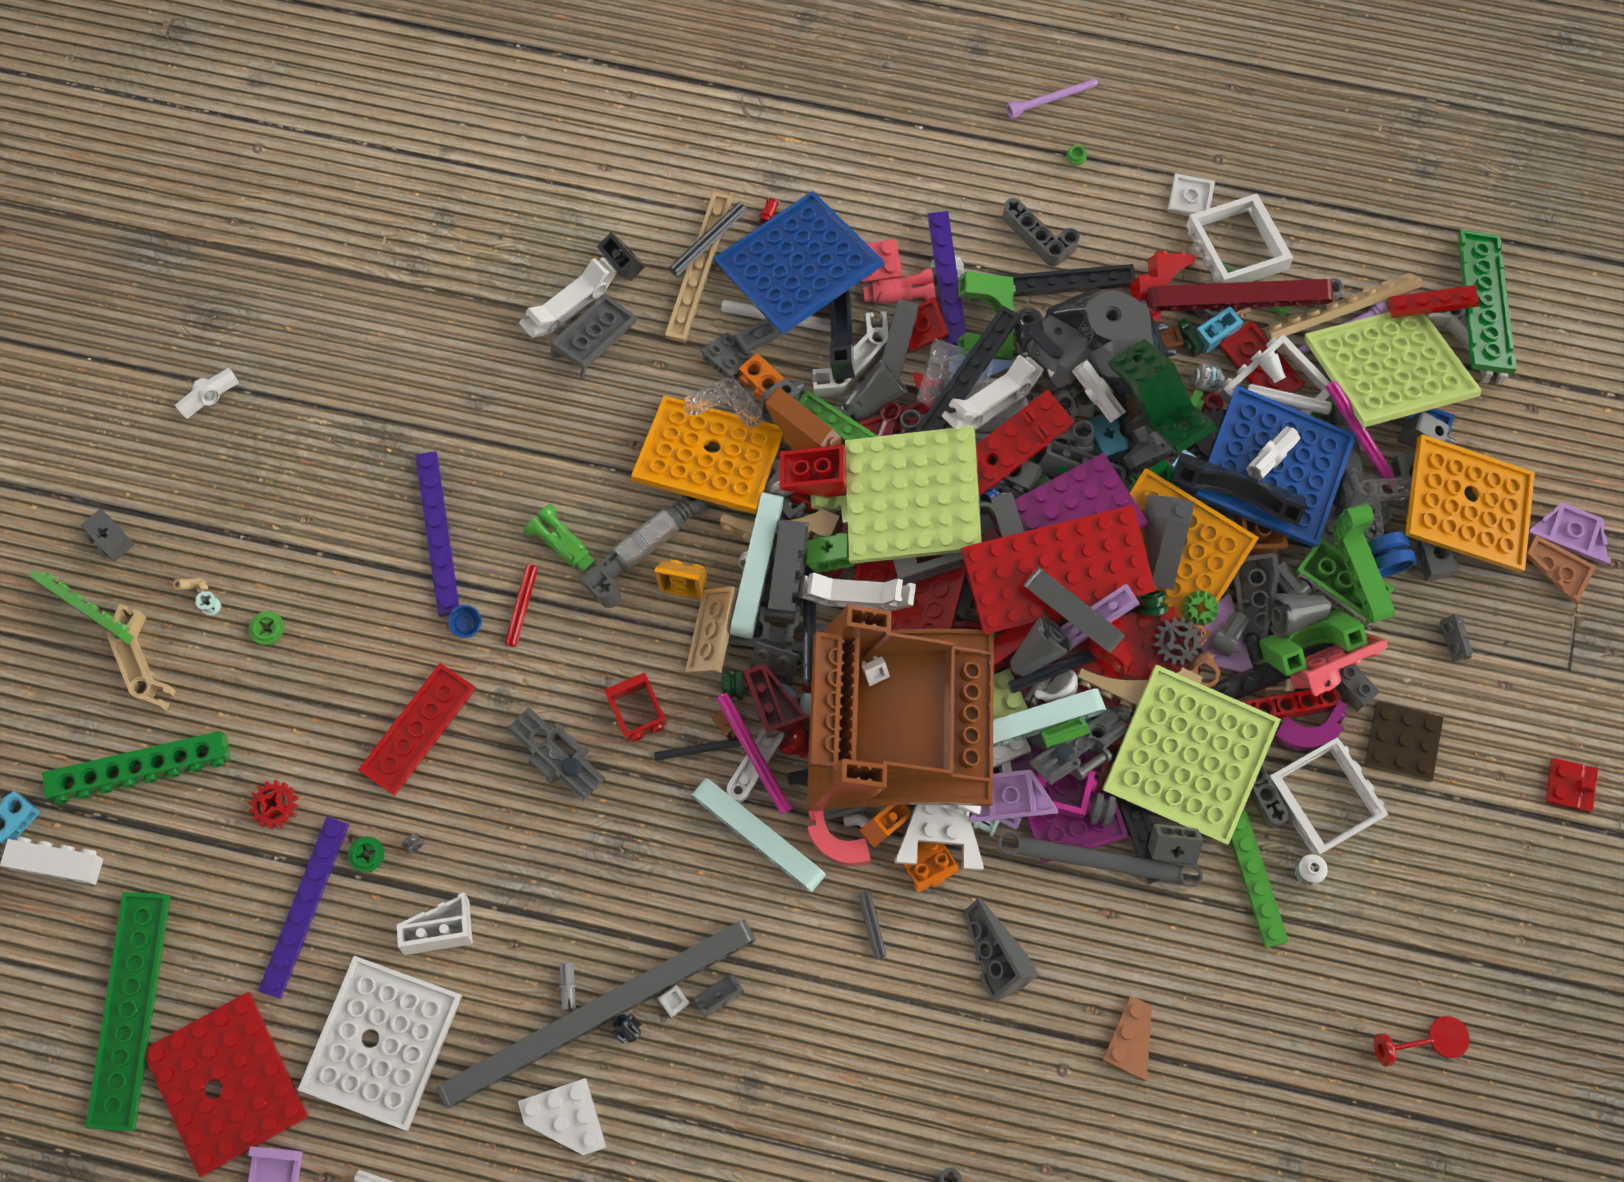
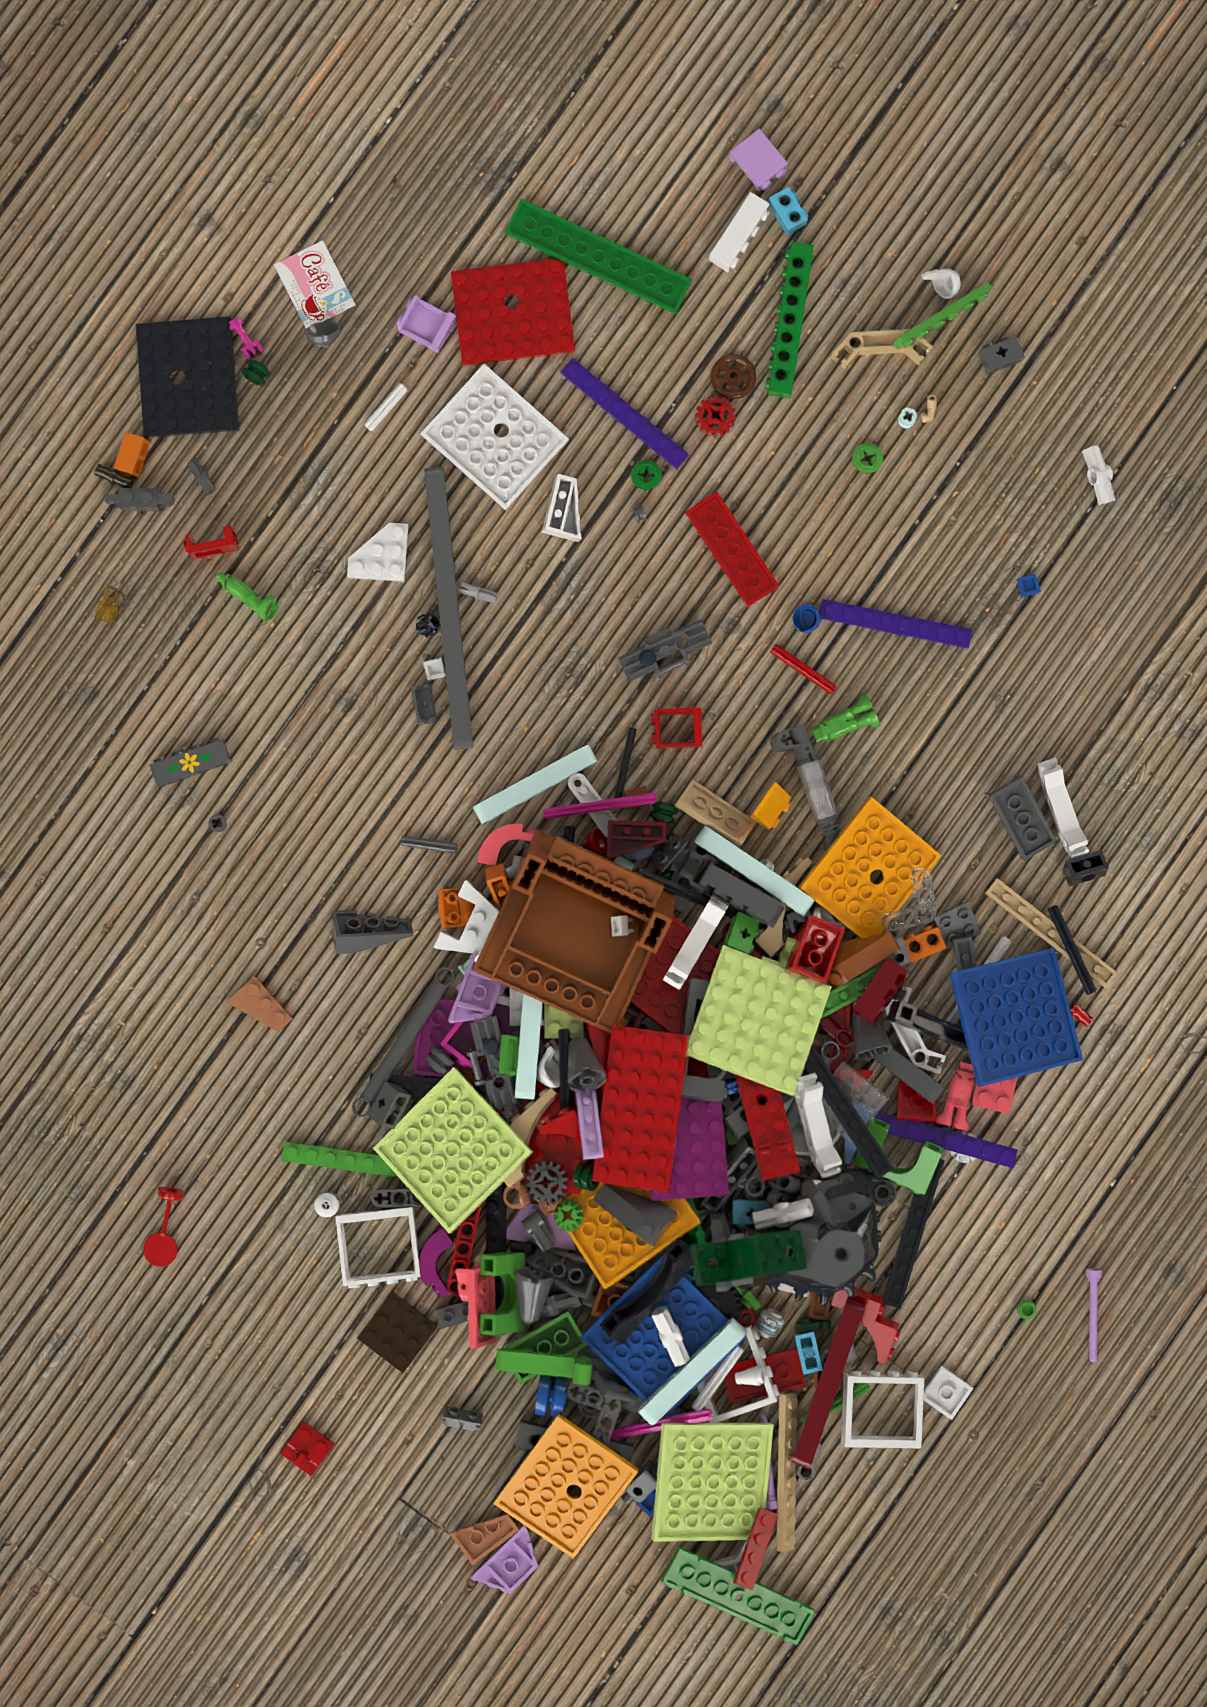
camera: 110 degrees right, 15 degrees up
(43, 620) = (945, 282): none -> white hat
(234, 817) = (735, 392): none -> reddish brown plate
(348, 417) = (1028, 585): none -> blue plate
(829, 392) = (880, 991): none -> dark red wedge
(1016, 214) = (967, 1240): dark grey beam -> none
(1074, 609) = (599, 1103): dark grey beam -> none
(1309, 425) = (692, 1371): none -> light aqua beam

